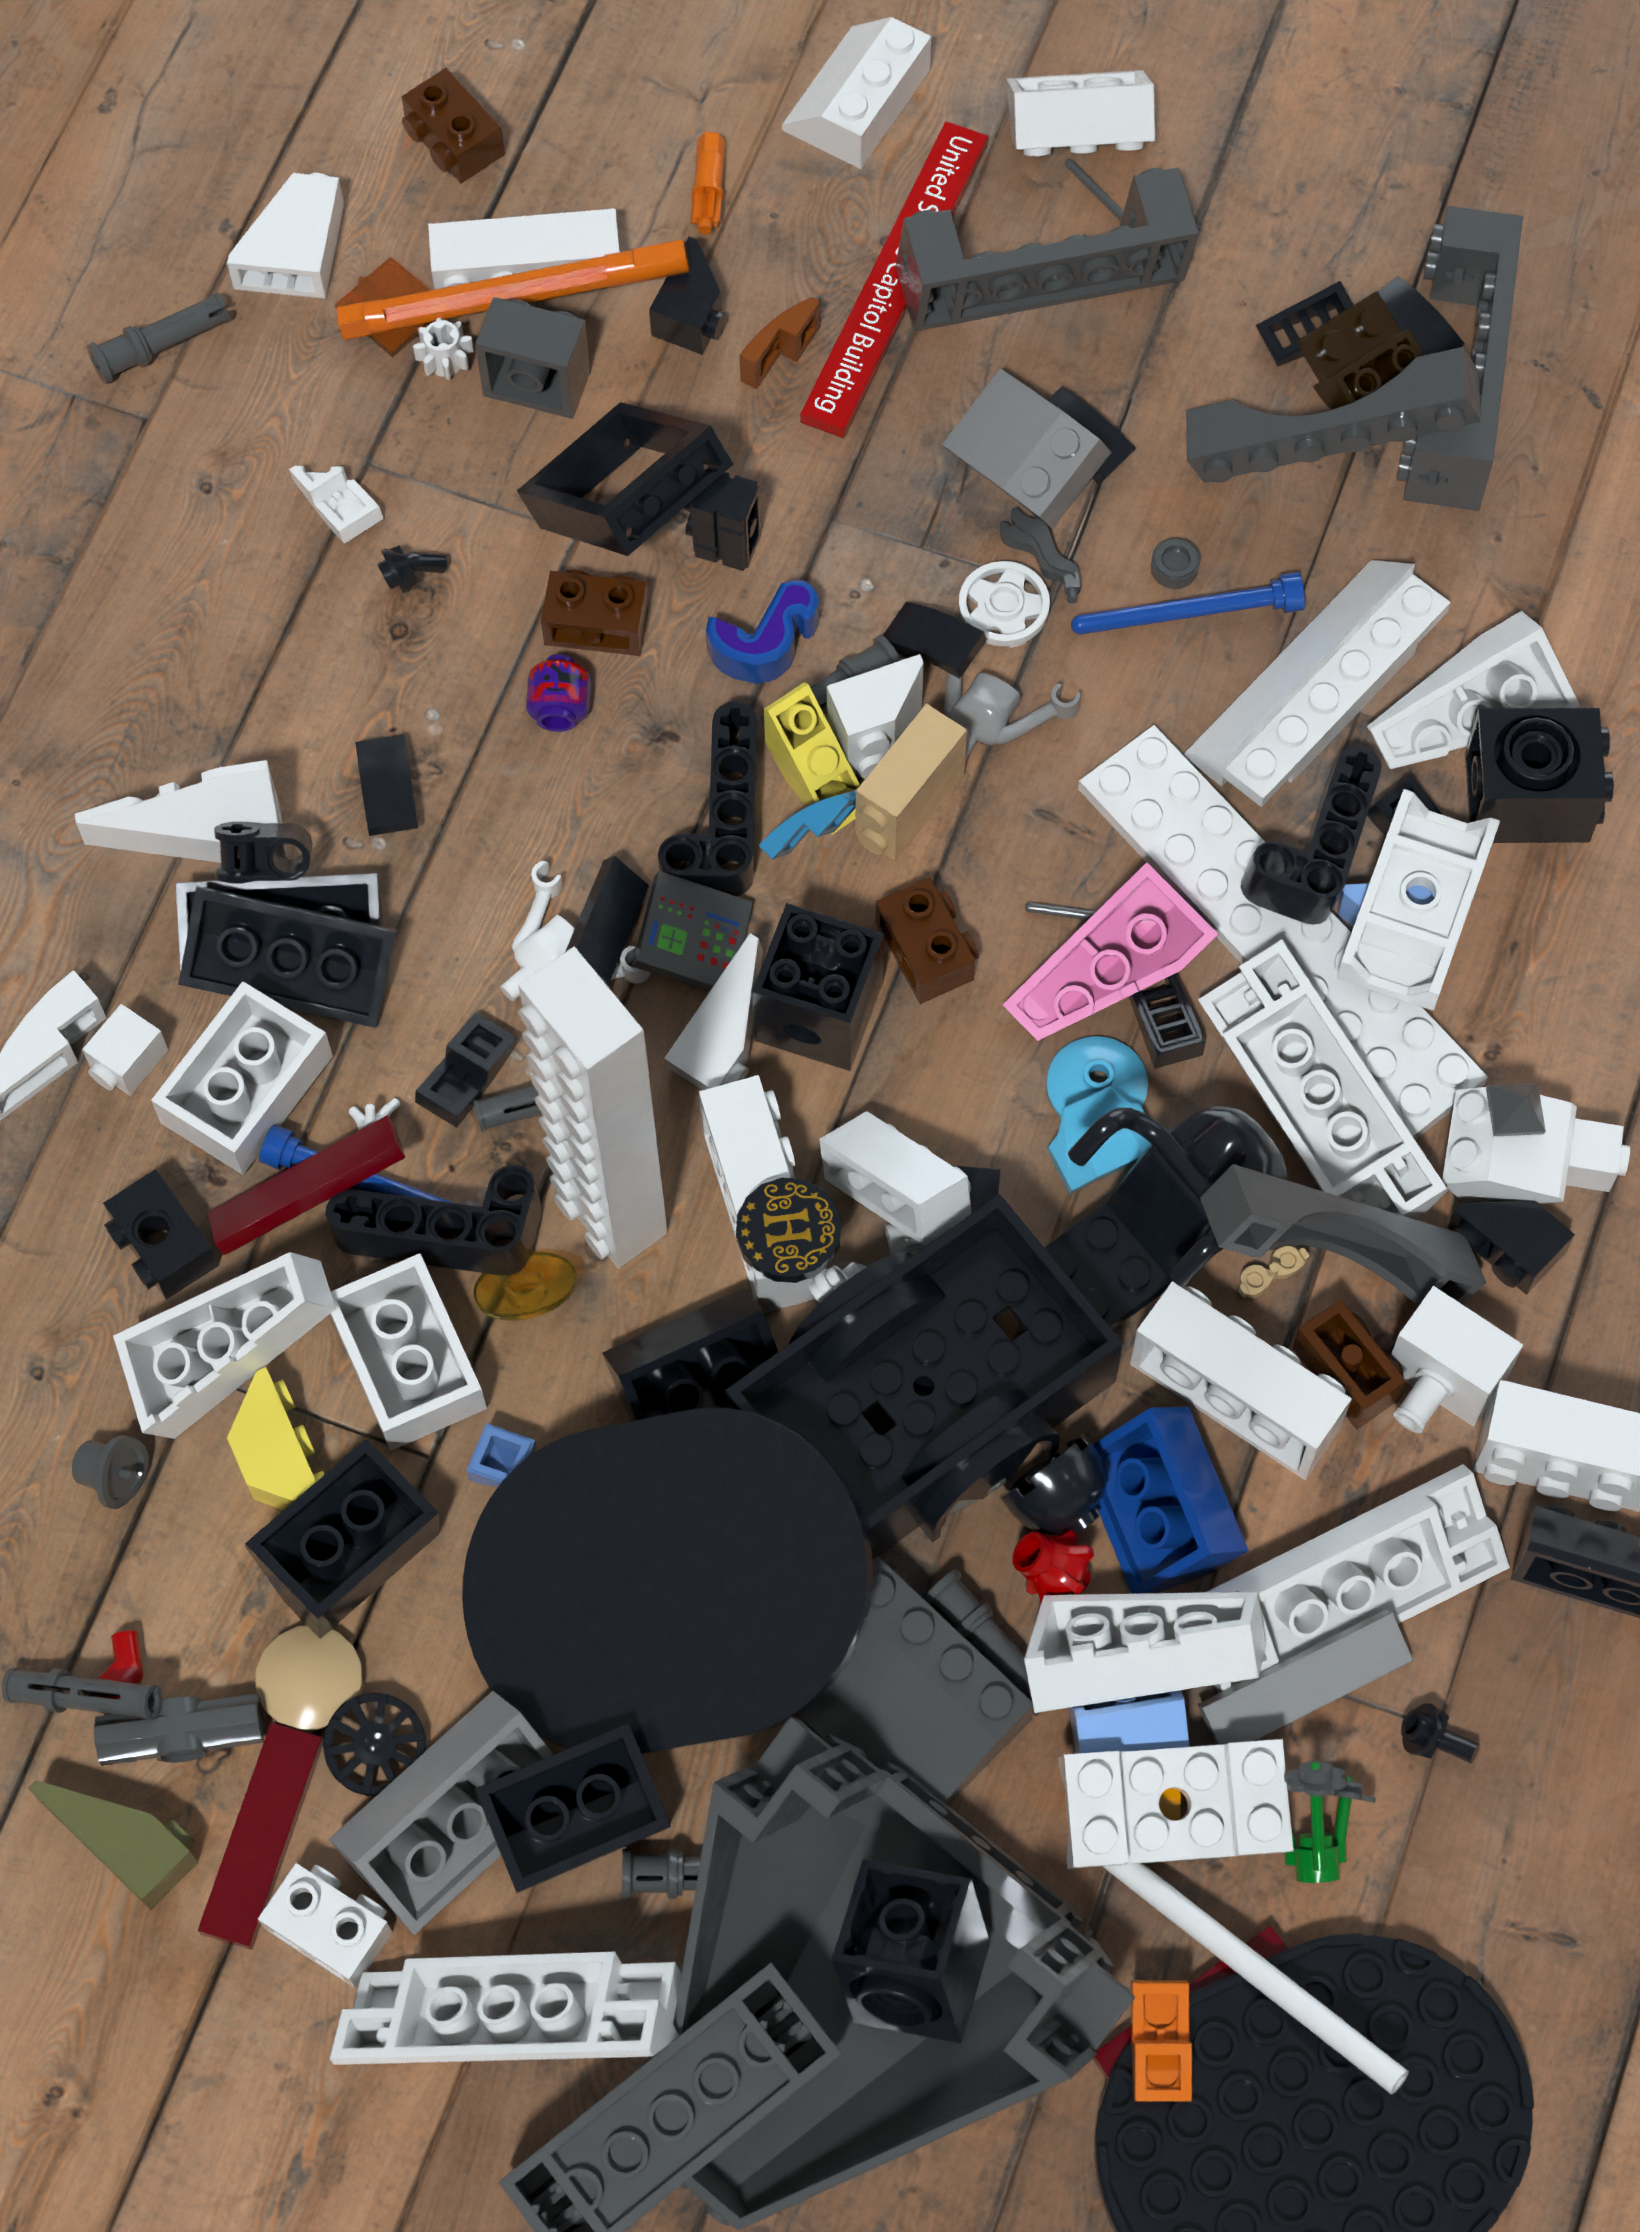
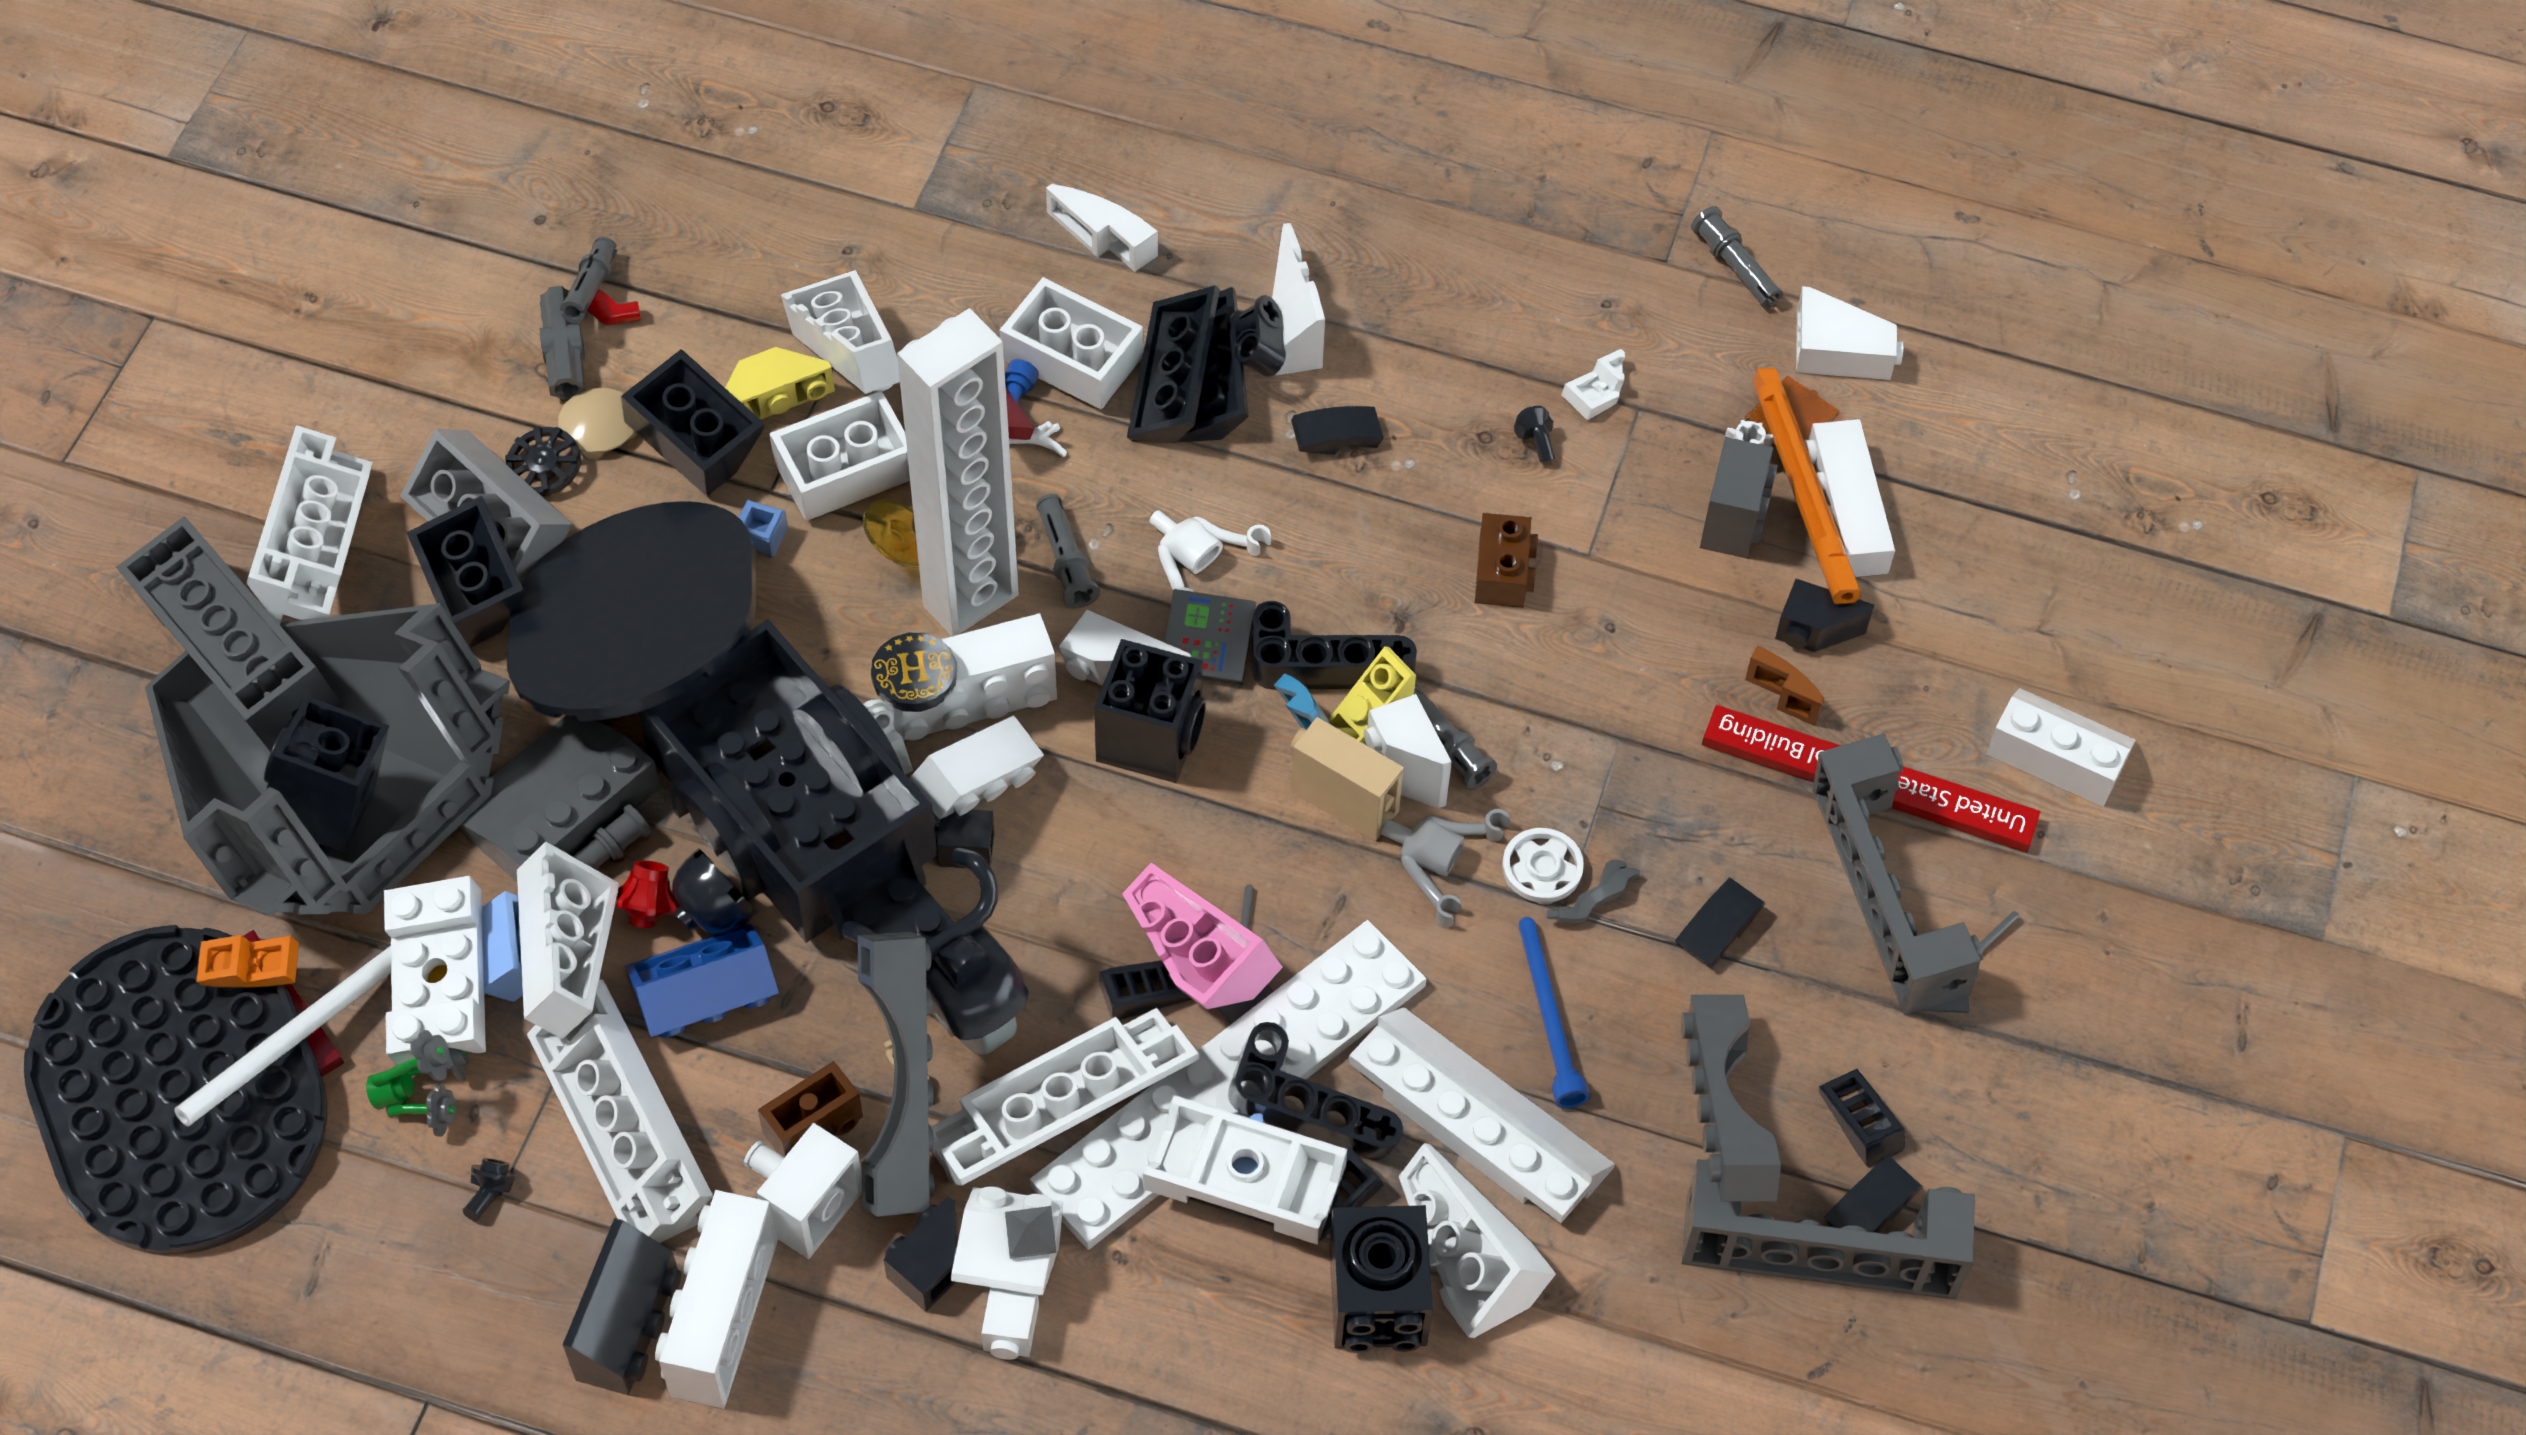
camera: 85 degrees right, 10 degrees down
(112, 1469) = (759, 289): dark grey piece -> none
(124, 1051) = (1099, 275): white brick -> none
(127, 1841) = (479, 316): olive slope -> none
(151, 1207) = (947, 297): black brick -> none
(261, 1836) = (480, 398): dark red tile -> none
(326, 1923) = (403, 433): white brick -> none
(452, 126) = (1971, 441): reddish brown brick -> none
(467, 1070) = (1093, 498): black slope -> none
(558, 693) = (1426, 538): dark purple head -> none
(608, 916) = (1203, 569): black tile -> none
(648, 501) = (1665, 566): black window -> none
(691, 1358) = (828, 635): black slope -> none
(707, 188) = (1944, 631): orange piece -> none
(726, 521) = (1592, 638): black brick -> none
(772, 646) = (1489, 688): blue animal -> none
(926, 939) = (1207, 803): reddish brown brick -> none
(936, 637) = (1495, 805): black slope -> none
(1027, 447) = (1688, 872): light grey slope -> none
(1070, 1070) = (1084, 957): medium azure dish -> none
(1081, 111) = (2069, 917): white slope -> none
(1115, 1154) = (1028, 934): medium azure slope -> none
(1175, 563) = (1596, 1001): dark grey tile -> none
(1240, 1379) = (793, 1023): white brick -> none
(1307, 1681) = (541, 1087): light grey tile -> none
(1357, 352) = (1826, 1148): dark brown brick -> none

